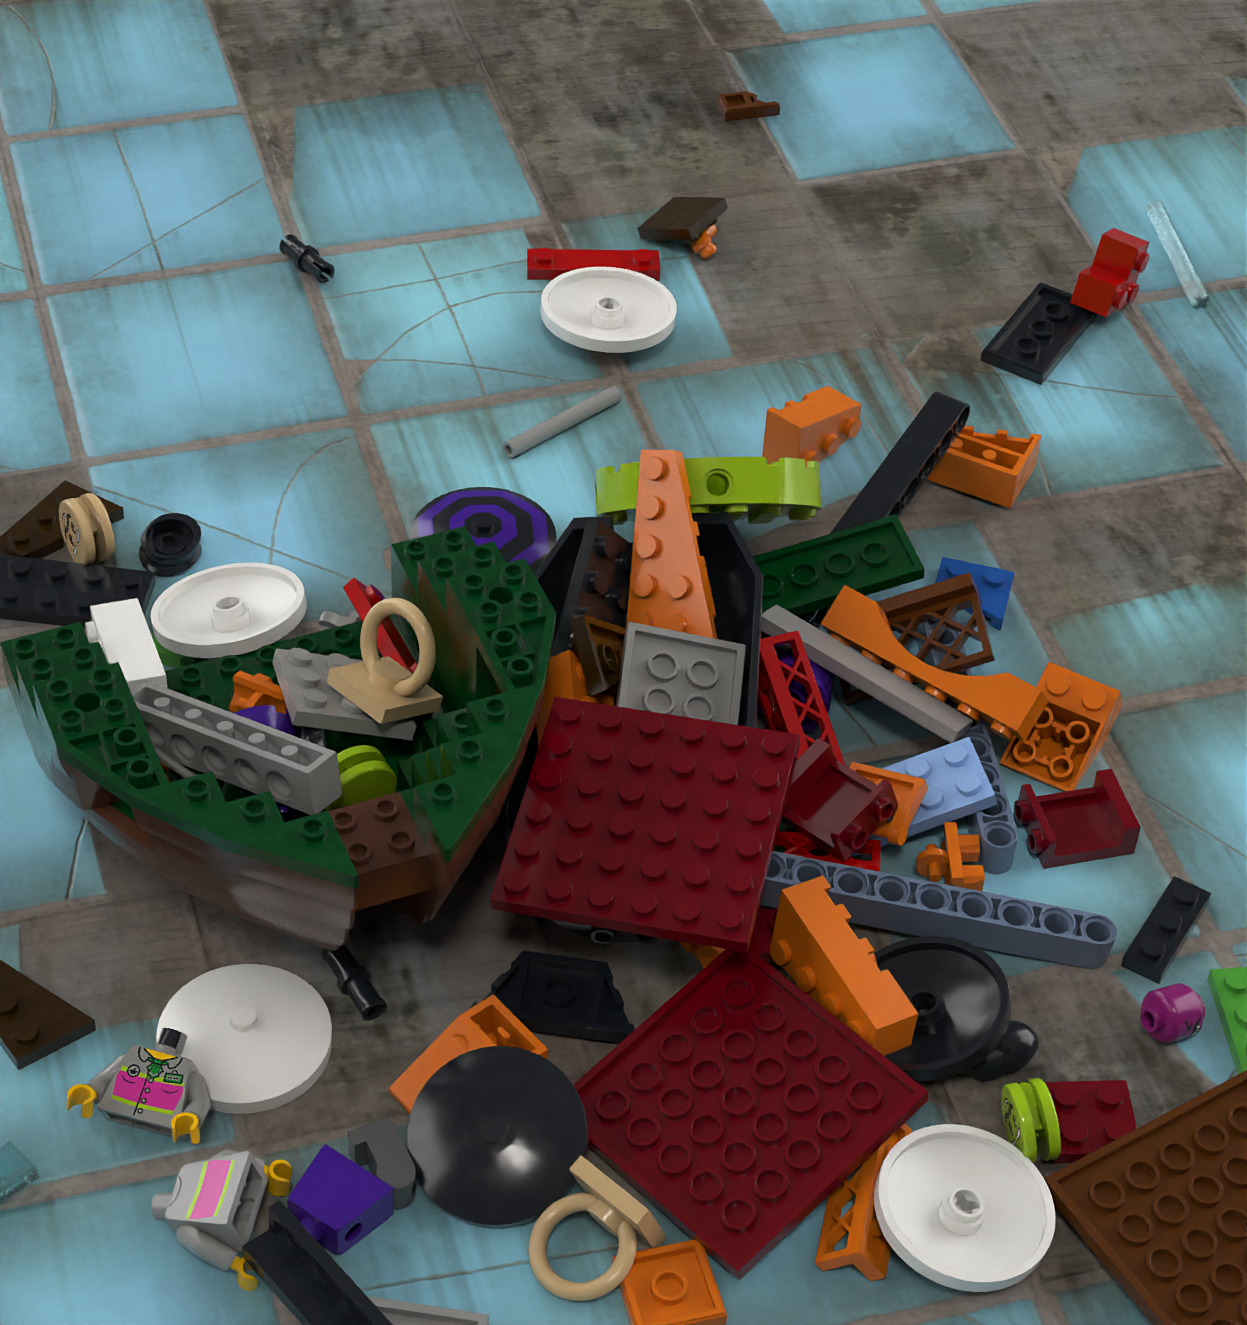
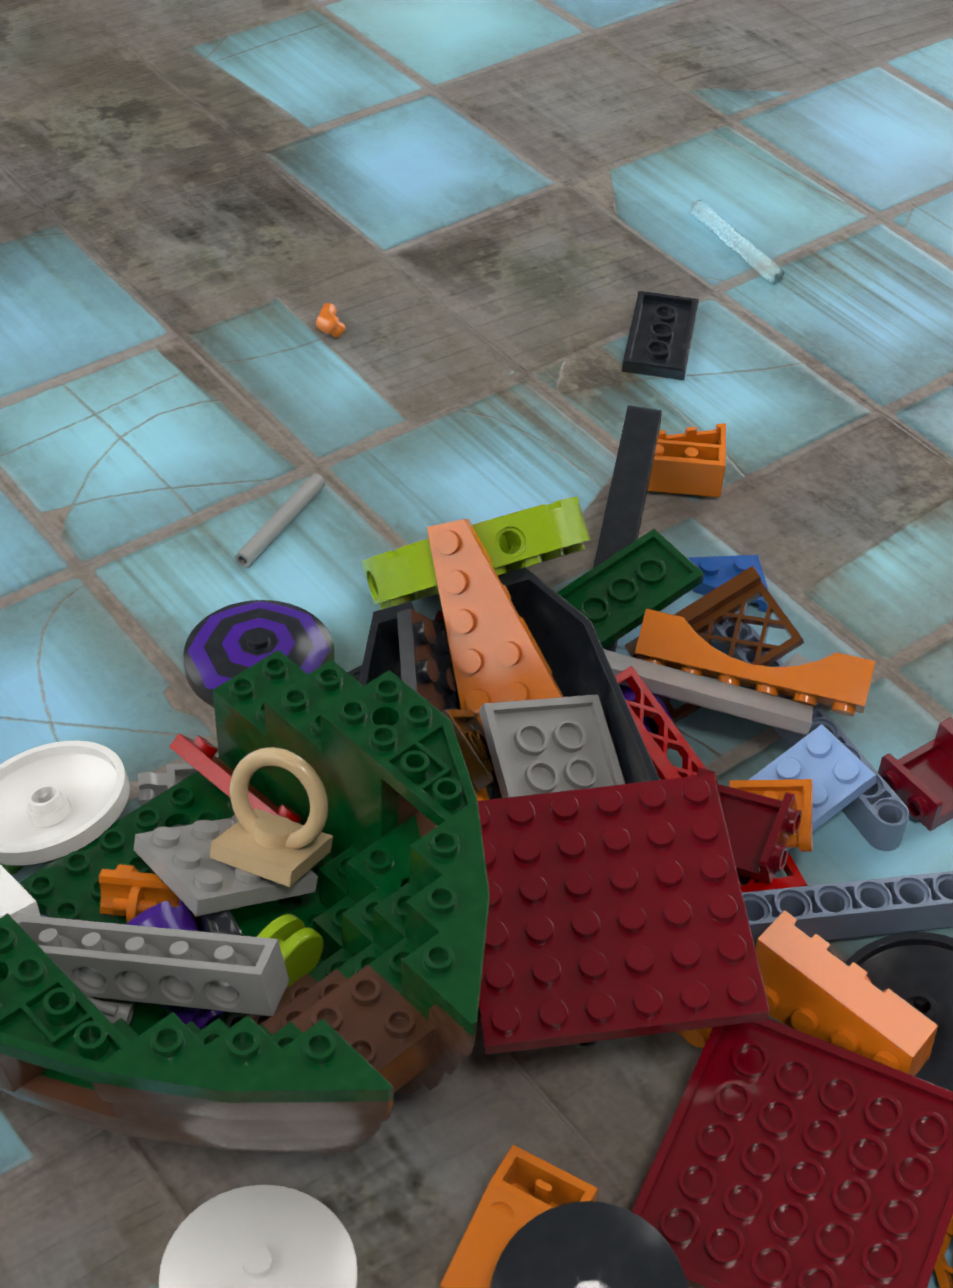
camera: 20 degrees left, 0 degrees up
(355, 982) = (351, 1174): black pin -> none
(550, 263) = (238, 366): red plate -> none
(563, 996) = (565, 1118): black wing -> none
(608, 309) = (278, 404): white dish -> none
(682, 219) = (304, 306): dark brown tile -> none
(744, 106) = (306, 196): reddish brown tile -> none
(811, 427) = (515, 471): orange wedge -> none
(949, 859) = (851, 850): orange hips -> none
(1067, 730) = (893, 694): orange slope -> none
(1113, 274) = (702, 275): red brick -> none

